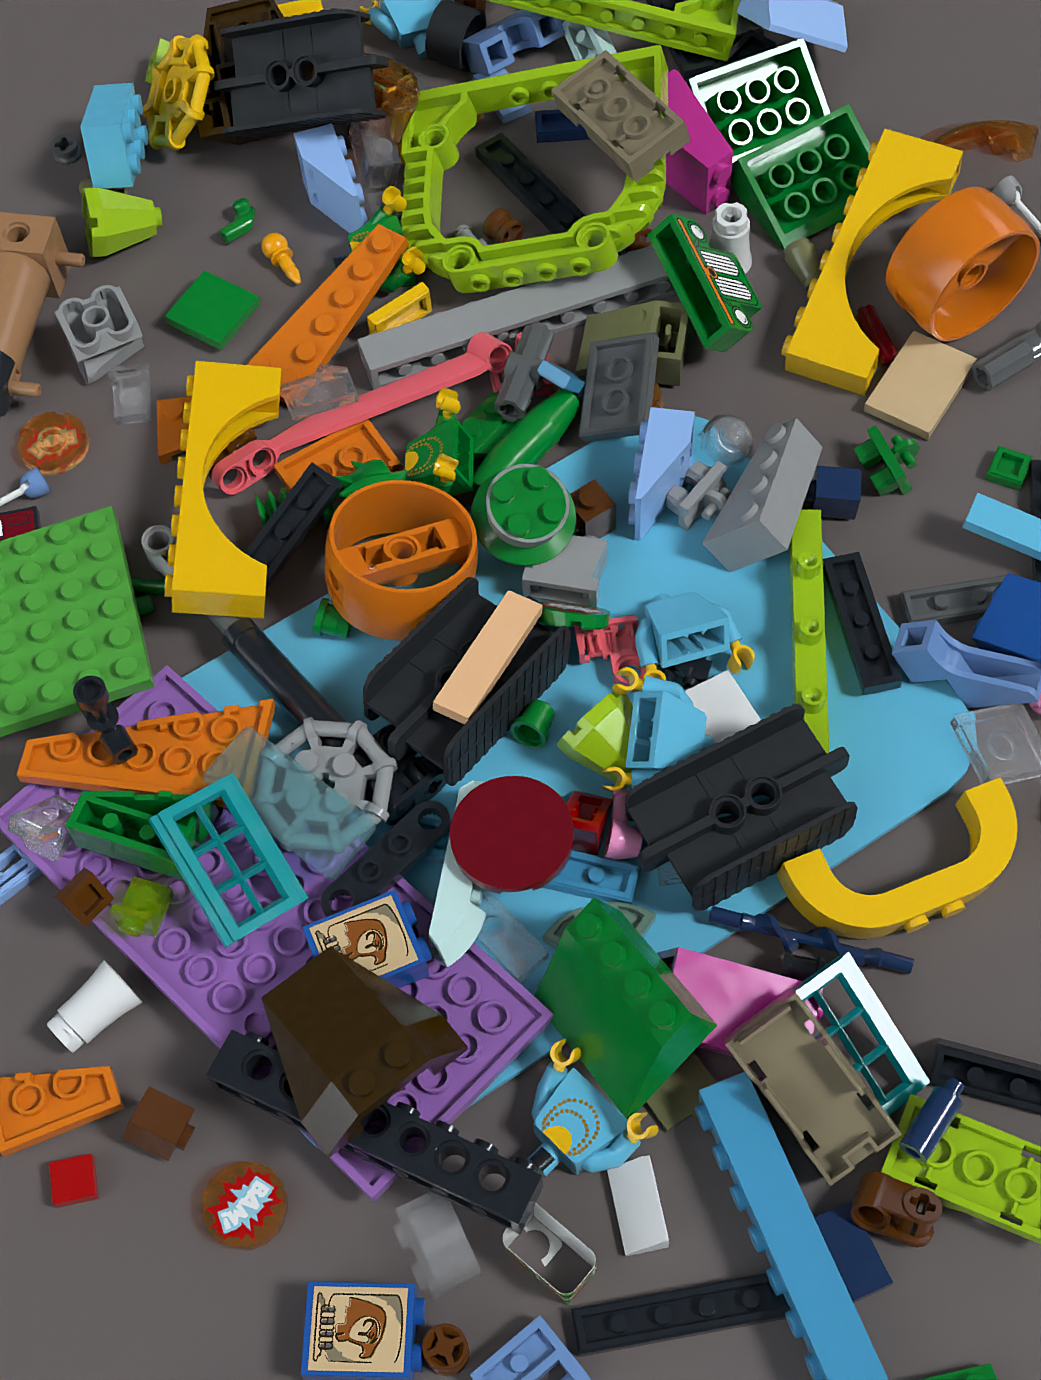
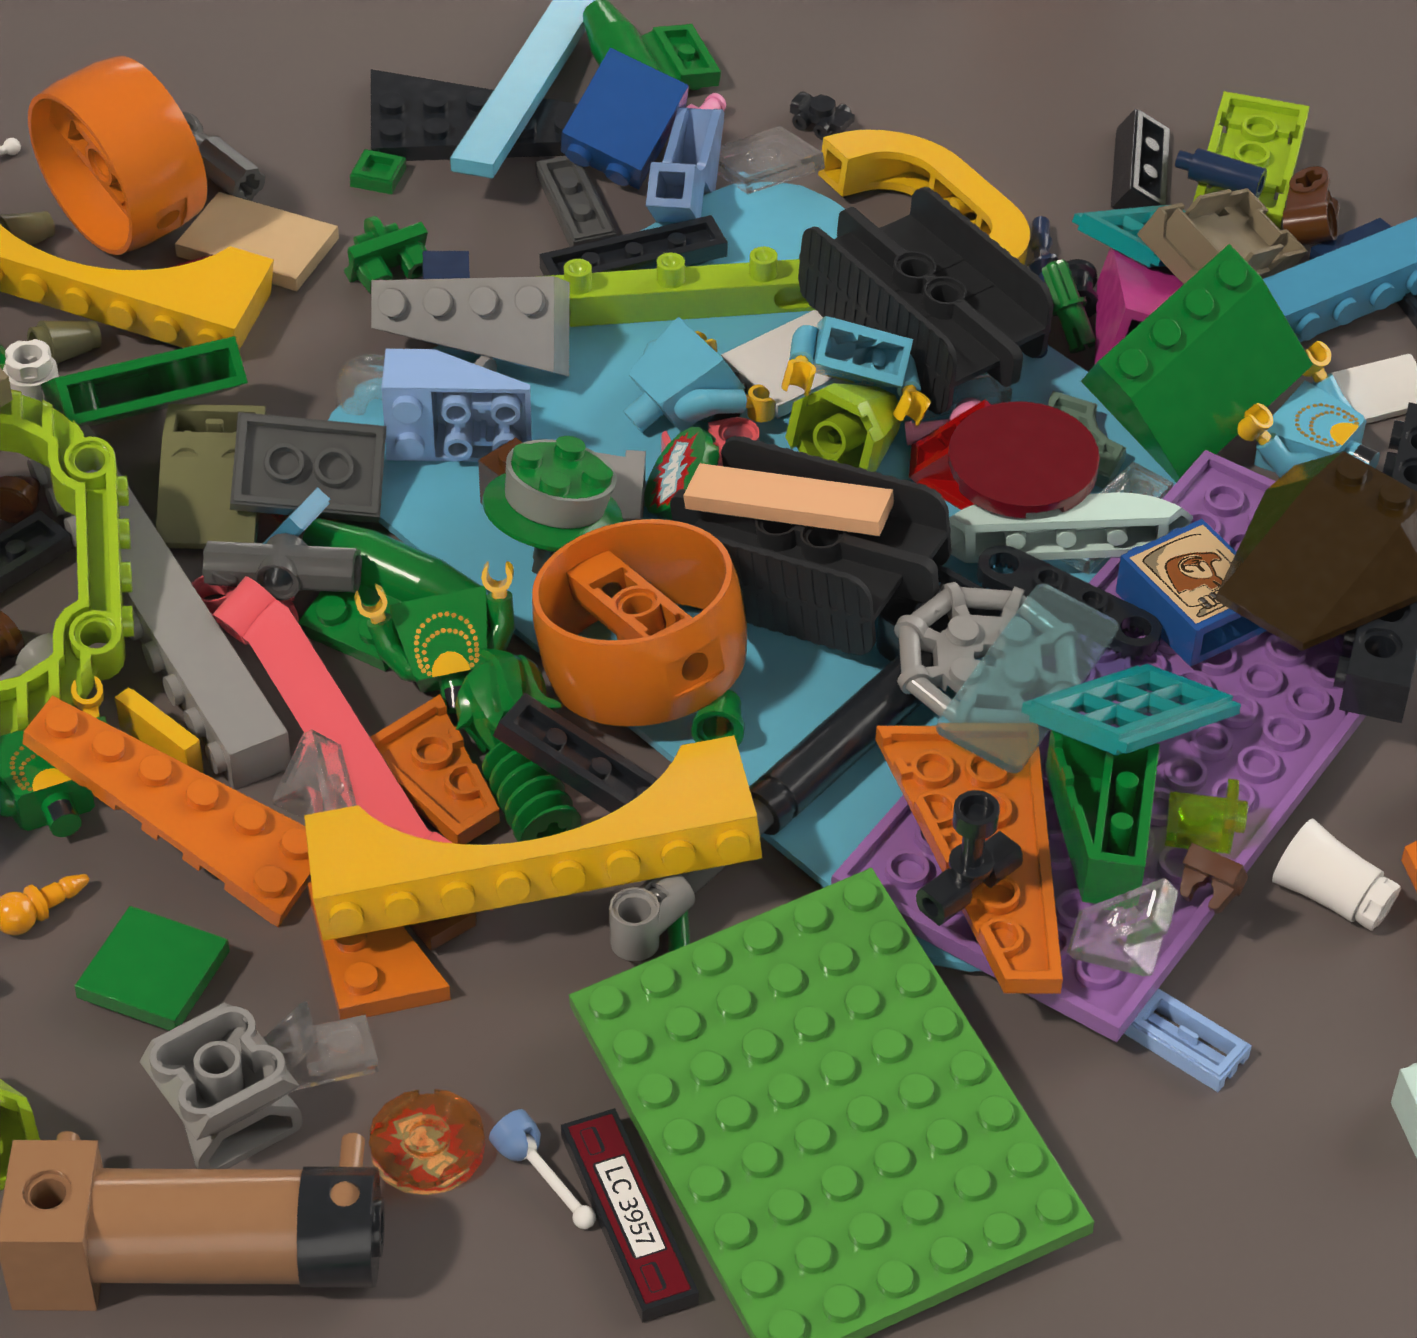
camera: 105 degrees left, 15 degrees down
(766, 948) = (1068, 305): none -> green axle

